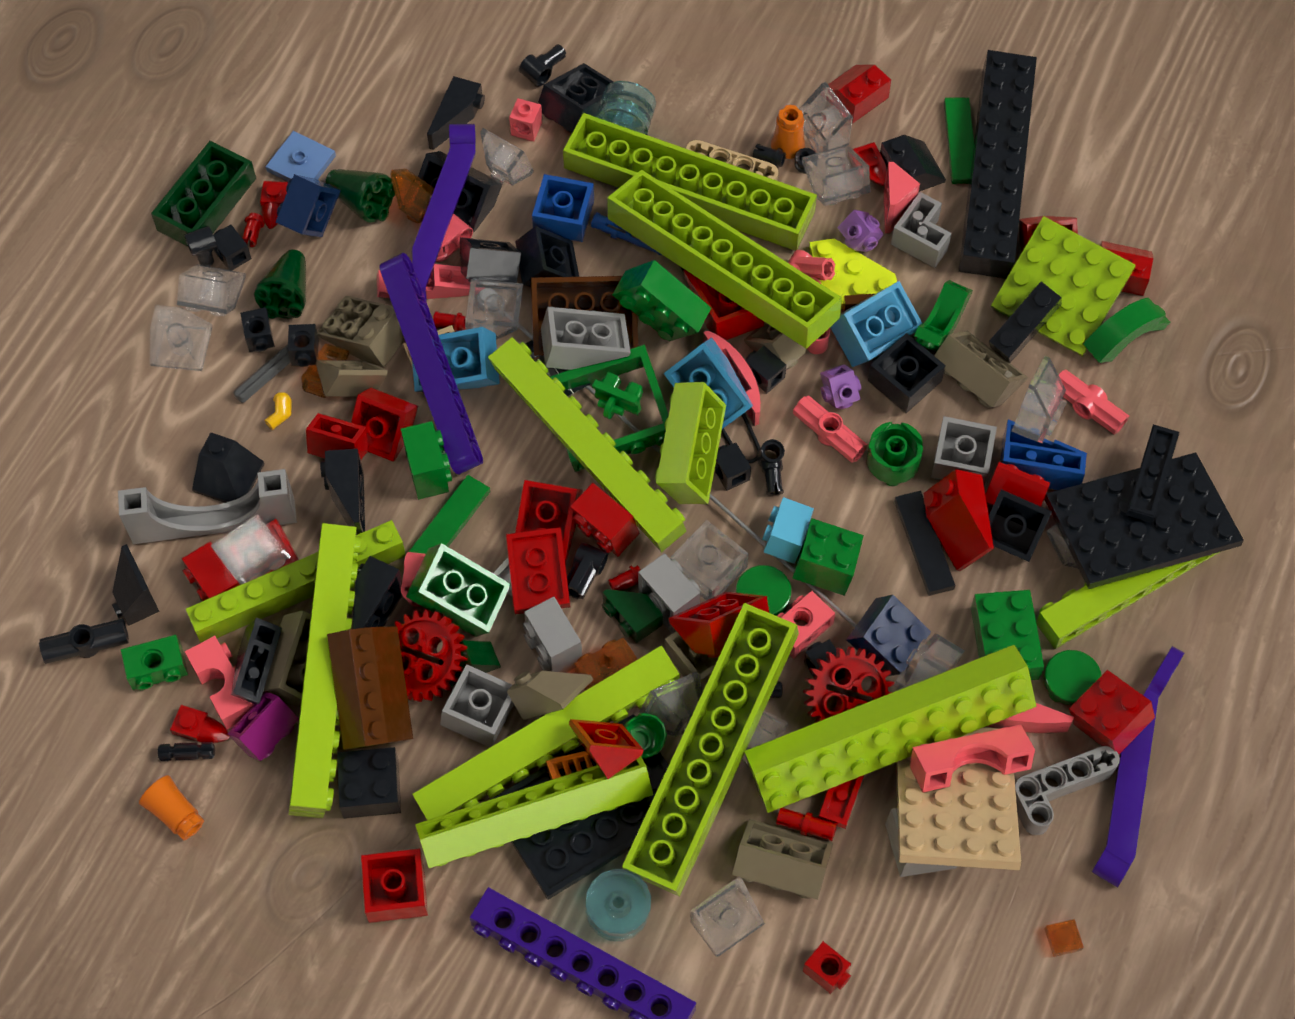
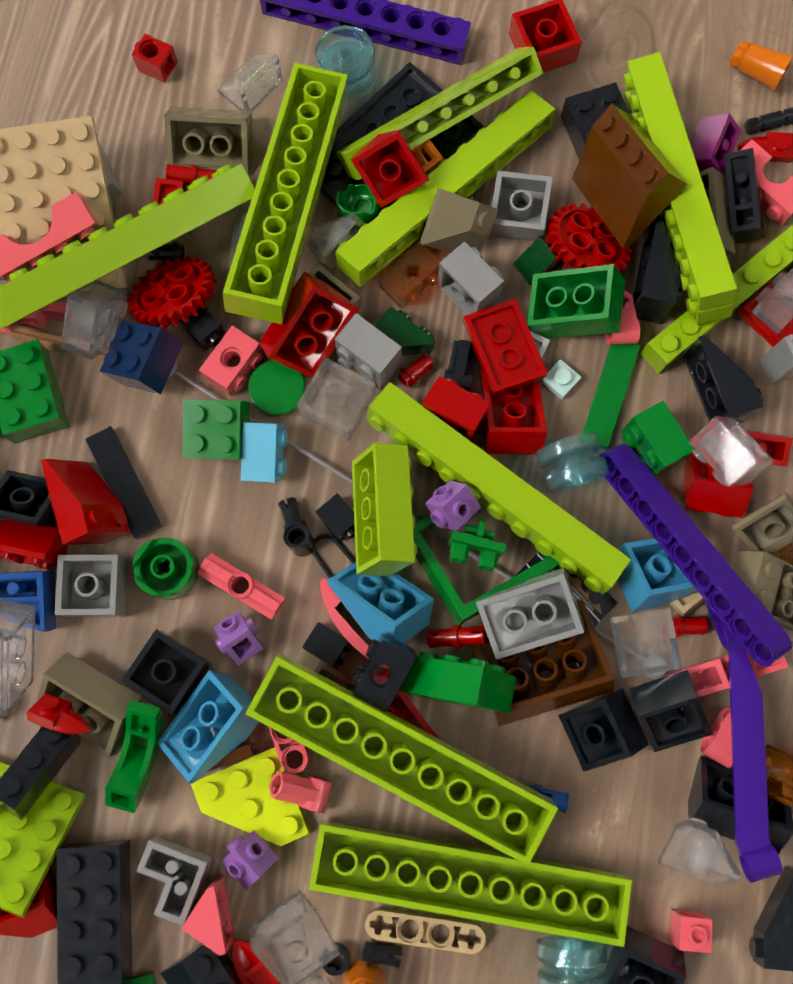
camera: 165 degrees right, 15 degrees up
(371, 414) = (730, 452): none -> clear brick
(490, 545) = (561, 379): none -> light aqua plate
(507, 456) = (572, 462): none -> clear light blue wheel
(564, 207) = (607, 805): blue brick -> none
(629, 427) = (452, 505): none -> medium lavender brick
(653, 349) = (457, 636): none -> red pin
(721, 314) = (381, 690): none -> black brick
(1002, 351) = (57, 715): none -> red plate

